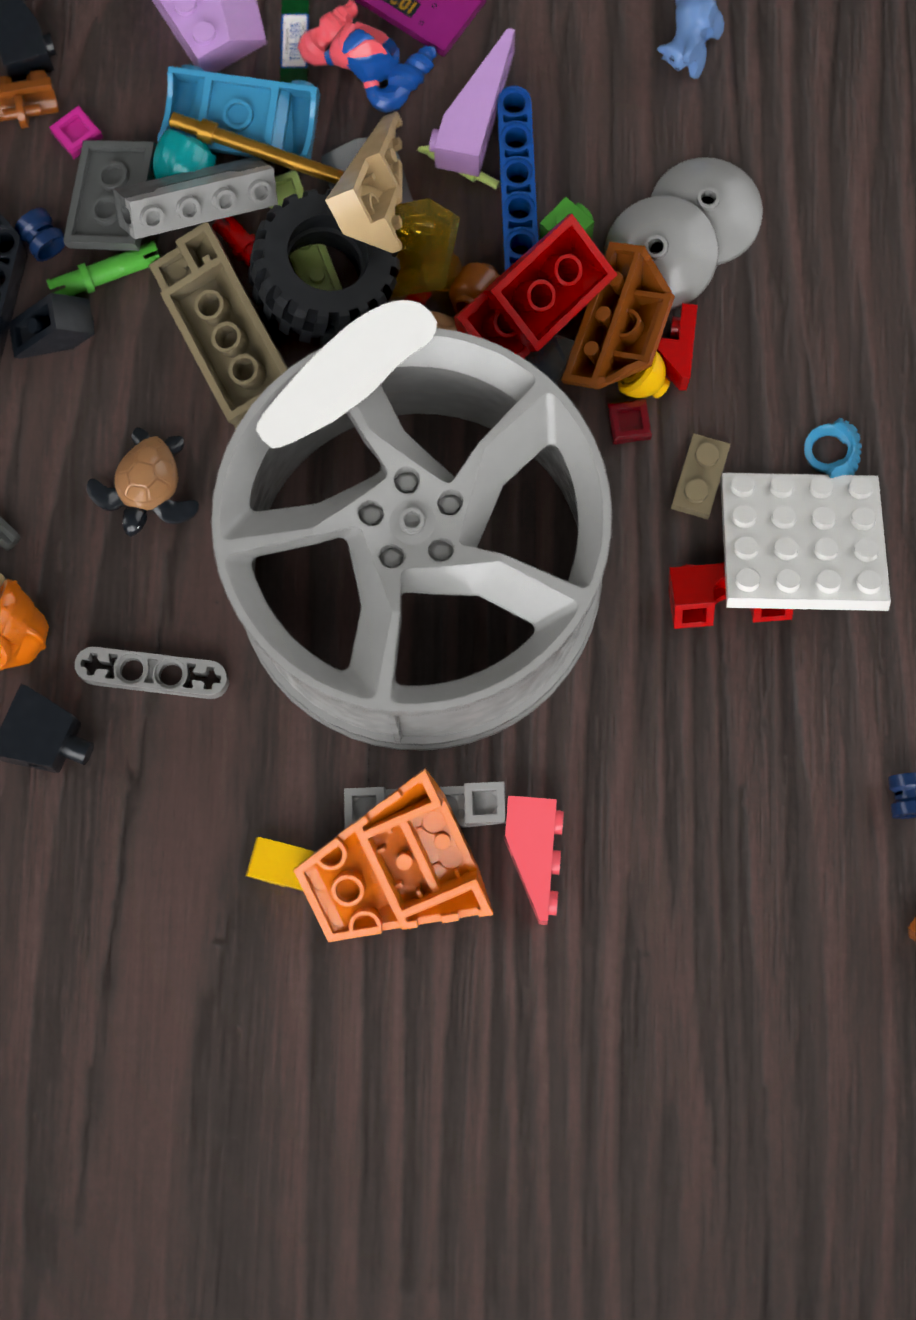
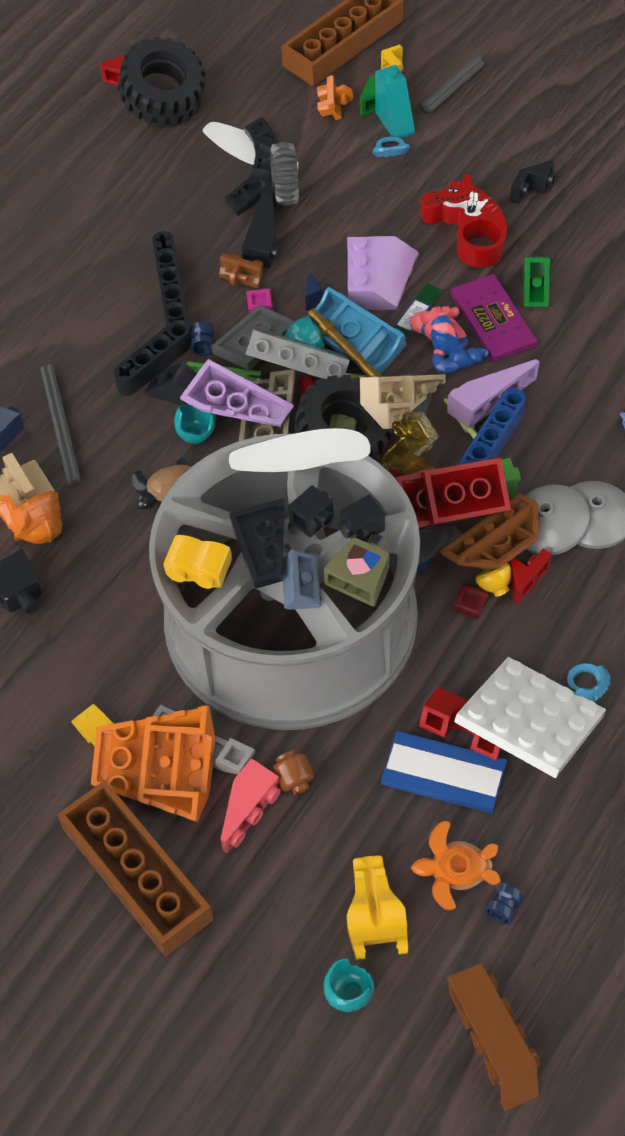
camera: 30 degrees right, 20 degrees down
(120, 369) = (193, 424): none -> teal hair
(144, 80) = (313, 293): none -> dark blue slope
(152, 668) = (99, 587): light grey beam -> none
(153, 309) = (230, 395): none -> lavender wedge
(326, 613) = (197, 561): none -> yellow brick
(385, 534) = (261, 541): none -> black wing
(426, 455) = (311, 511): none -> black brick
(458, 1015) = (135, 868): none -> dark orange brick
(471, 560) = (300, 581): none -> sand blue slope
(499, 433) = (362, 519): none -> black brick
(541, 502) = (359, 569): none -> olive torso
(564, 778) = (293, 772): none -> dark orange head
(700, 476) = (494, 652): dark tan plate -> none
(737, 669) = (443, 772): none -> tile
(770, 894) = (375, 911): none -> yellow animal
(803, 1007) = (348, 986): none -> teal hair
(829, 783) = (455, 865): none -> orange animal

